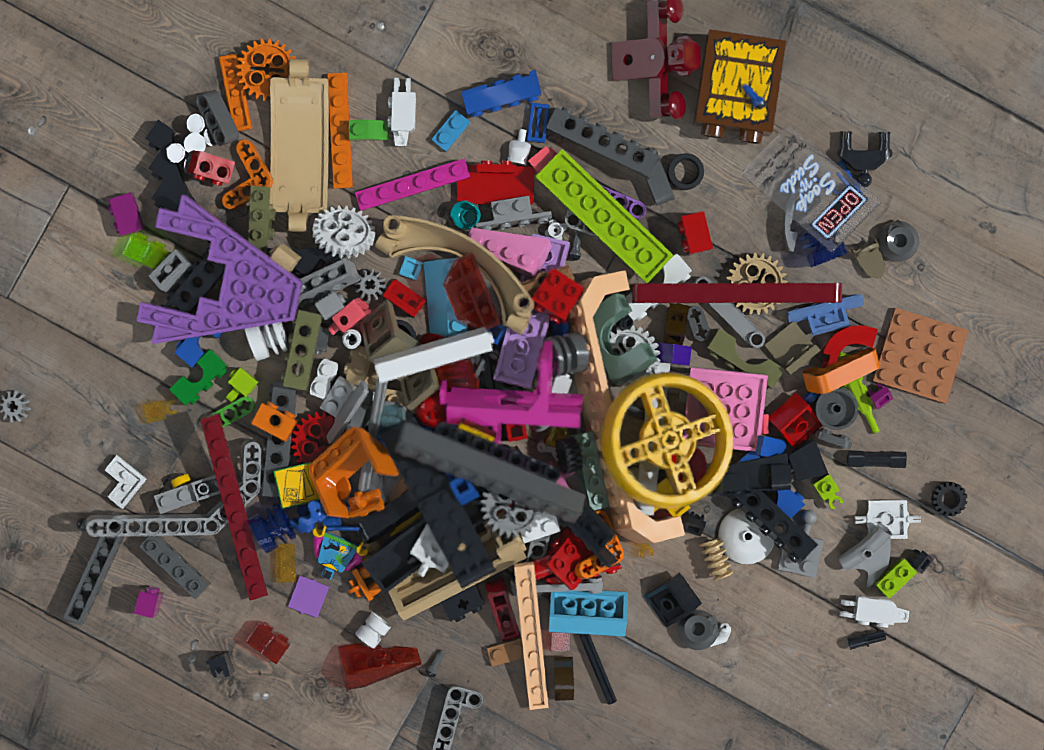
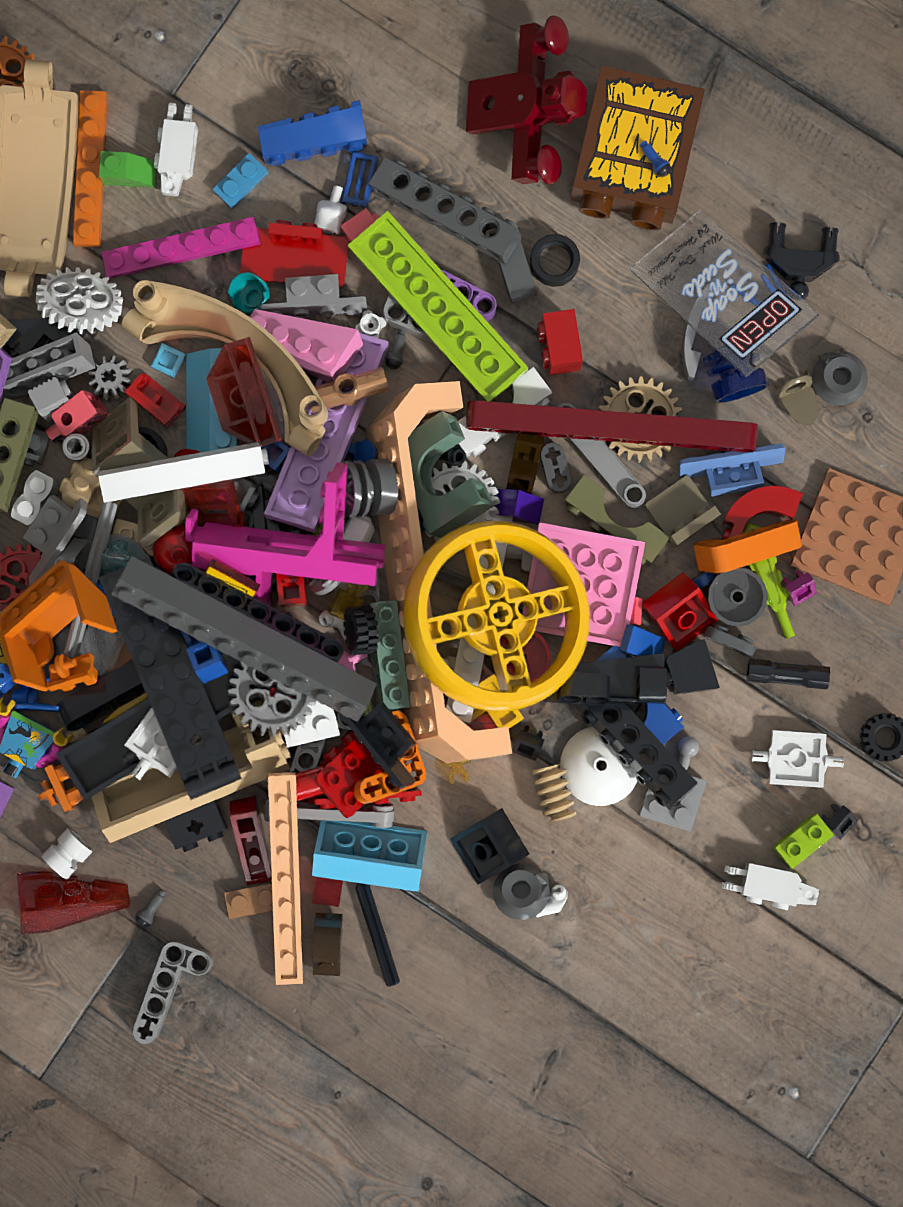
camera: 10 degrees right, 5 degrees down
(557, 296) = (361, 407): red bracket -> none
(826, 488) = (715, 708): lime brick -> none
(866, 639) = (756, 924): black axle -> none
(870, 554) = (772, 814): light grey pin -> none

